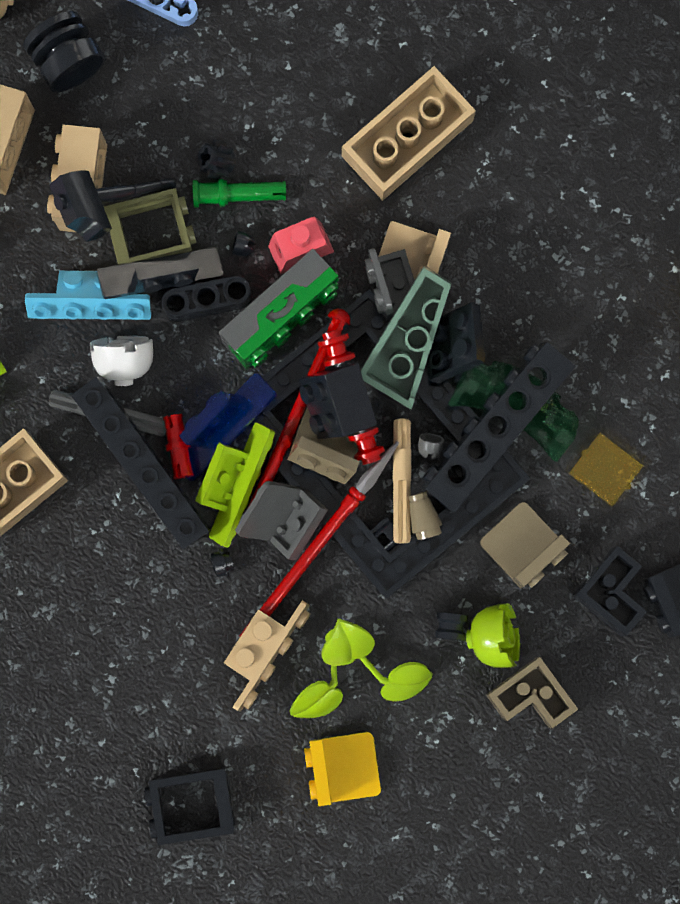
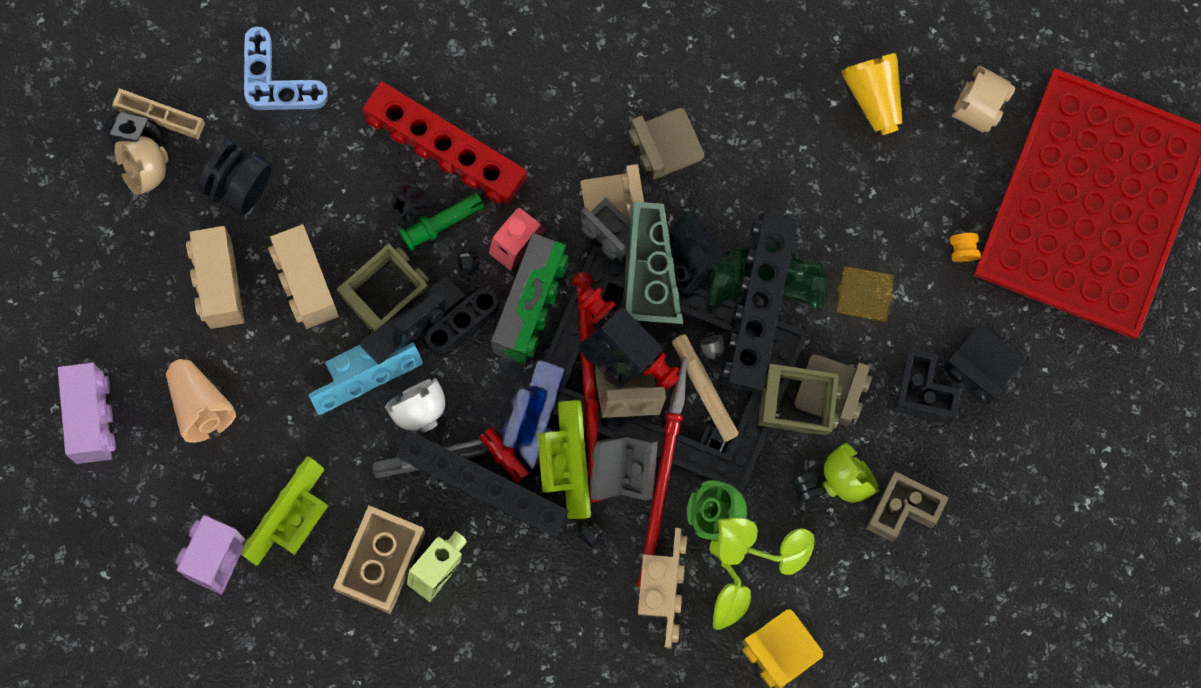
camera: 30 degrees left, 5 degrees down
(47, 522) = (429, 573): none -> yellowish green torso
(82, 202) = (324, 292): black piece -> none
(247, 50) = (387, 99): none -> red brick
(350, 599) = (711, 503): none -> bright green cylinder
(424, 517) = (739, 407): dark tan cone -> none
(428, 111) = (564, 75): tan brick -> none
(458, 521) = (769, 397): none -> olive window
(491, 226) = (666, 143): none -> dark tan bracket

